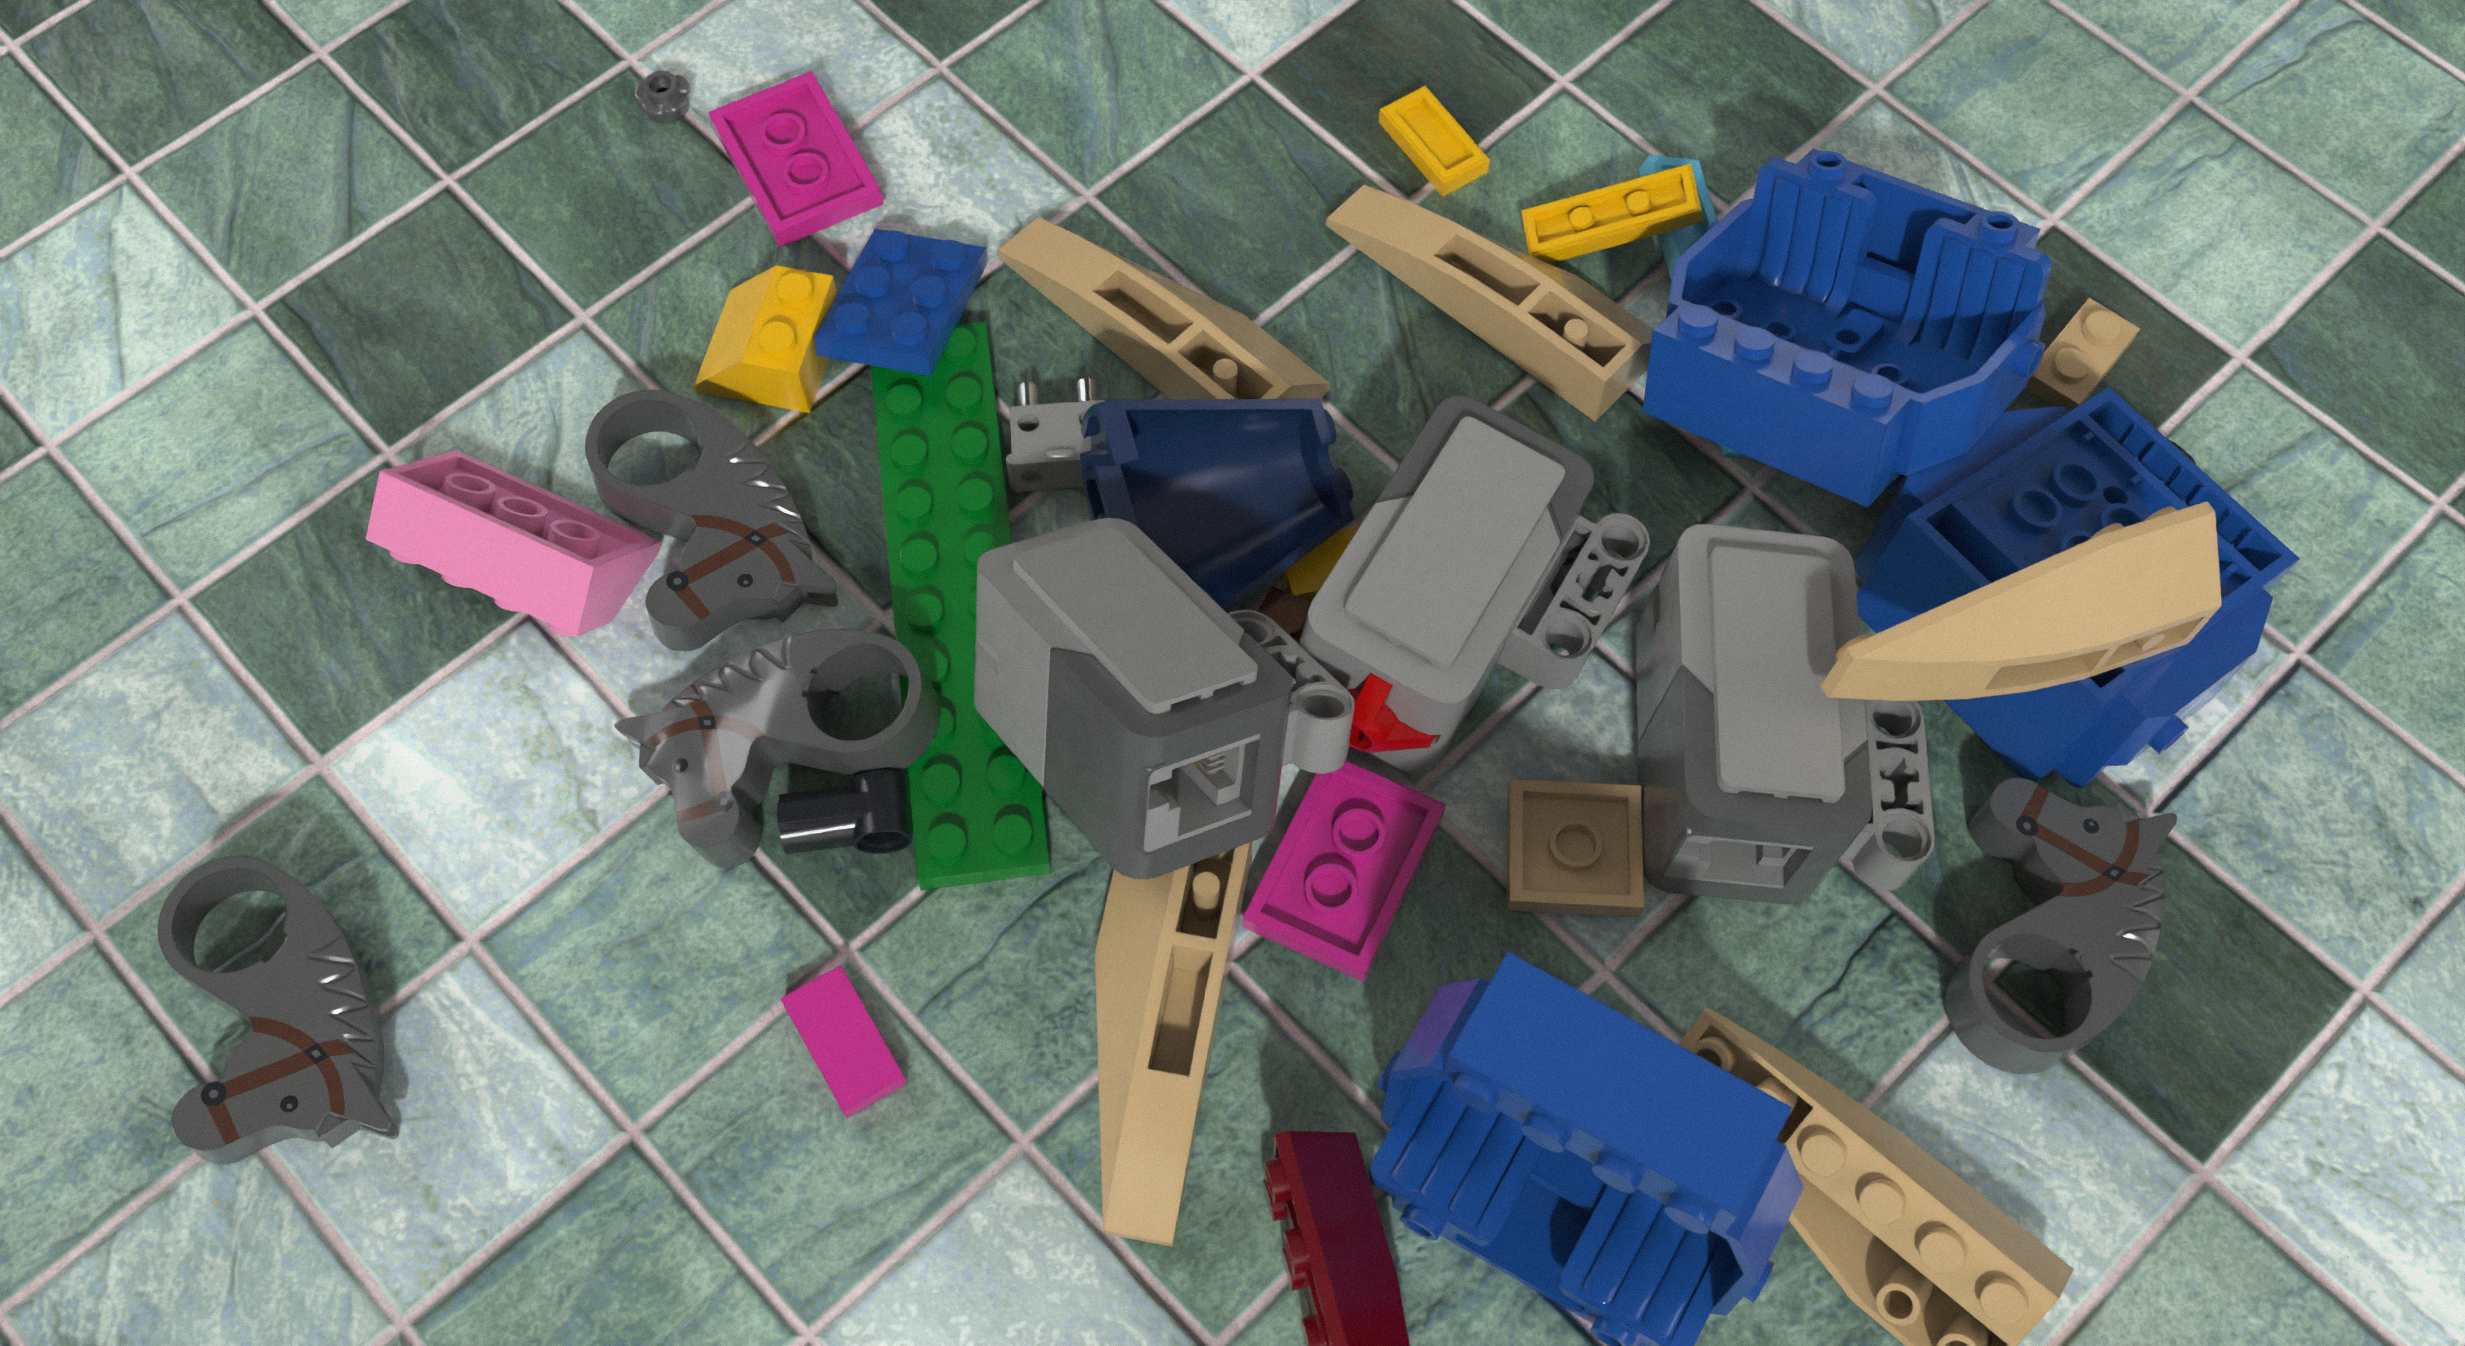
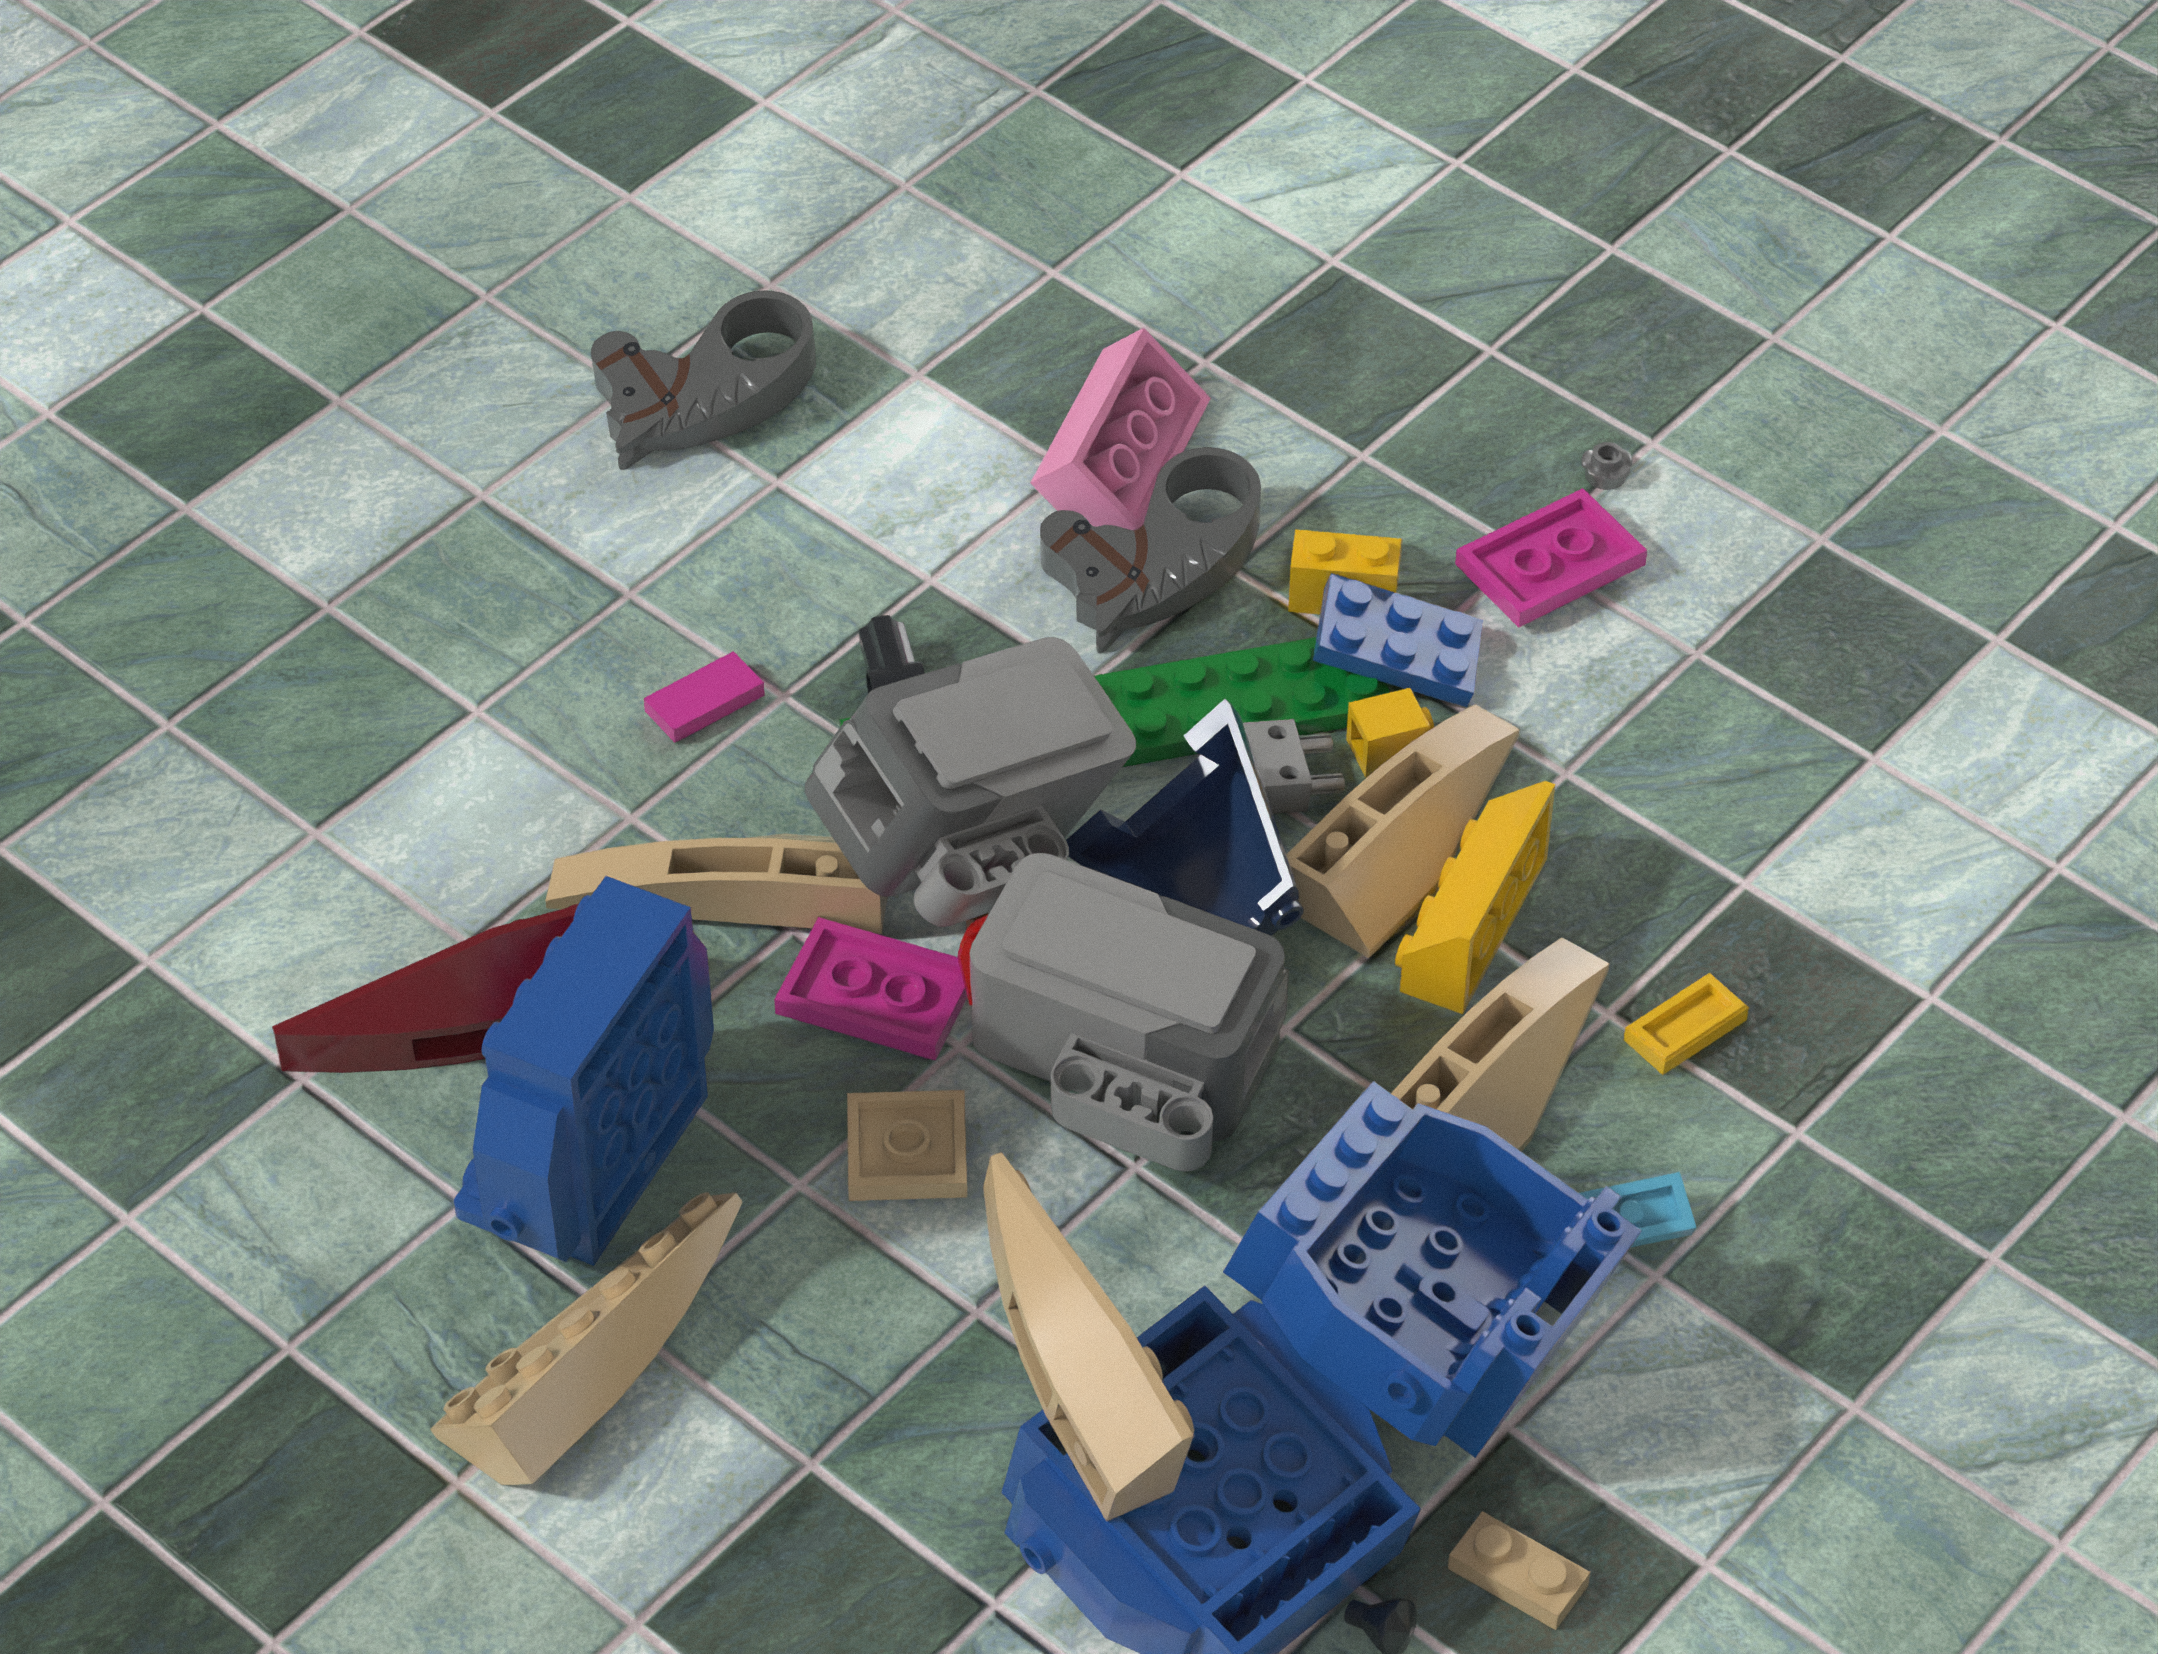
camera: 85 degrees right, 15 degrees down
(767, 709) = (951, 589): dark grey animal -> none
(1030, 328) = (1384, 726): none -> yellow brick
(1286, 264) = (1477, 898): none -> yellow slope
(1613, 215) = (1600, 1146): yellow tile -> none
(1740, 751) = (1093, 1171): light grey piece -> none
(2092, 924) = (862, 1530): dark grey animal -> none

